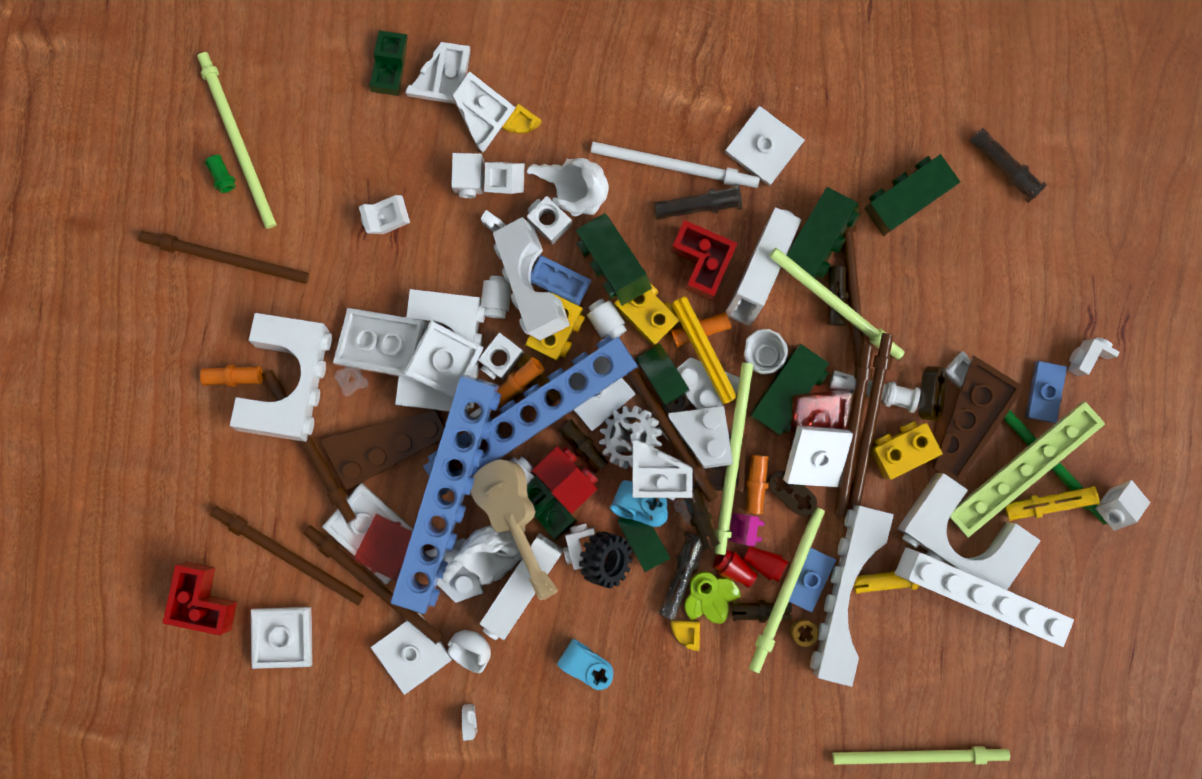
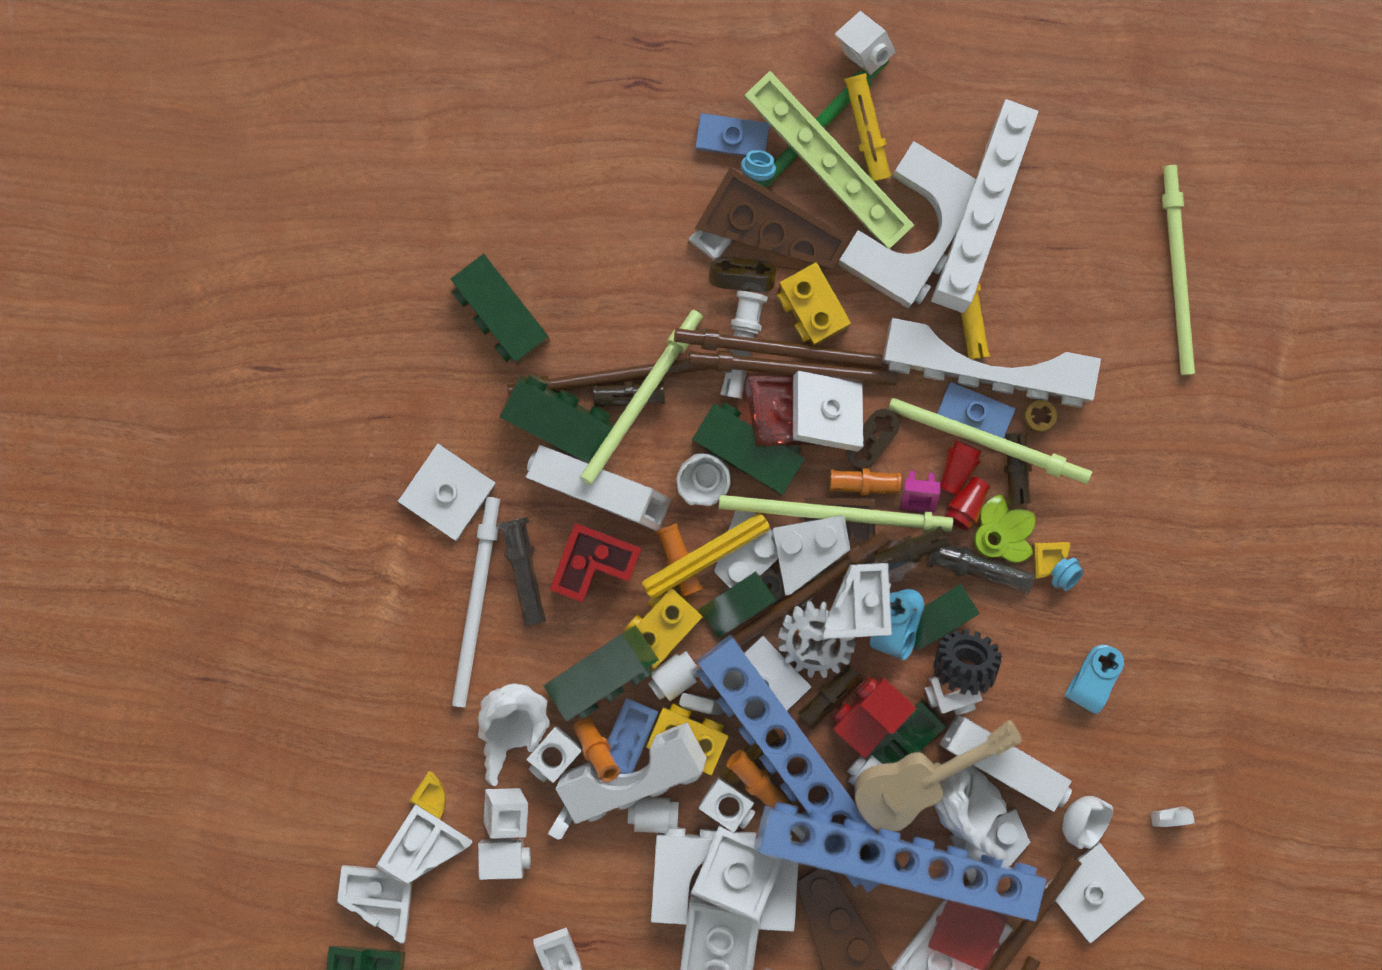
camera: 90 degrees left, 0 degrees up
(551, 252) = (596, 749): none -> orange pin
(583, 339) = (700, 704): none -> white tile
(673, 646) = (1066, 574): none -> medium azure plate
(1015, 172) = (468, 180): clear smoke pin -> none
(1023, 411) = (758, 166): none -> medium azure plate
(1086, 355) = (688, 92): white bracket -> none

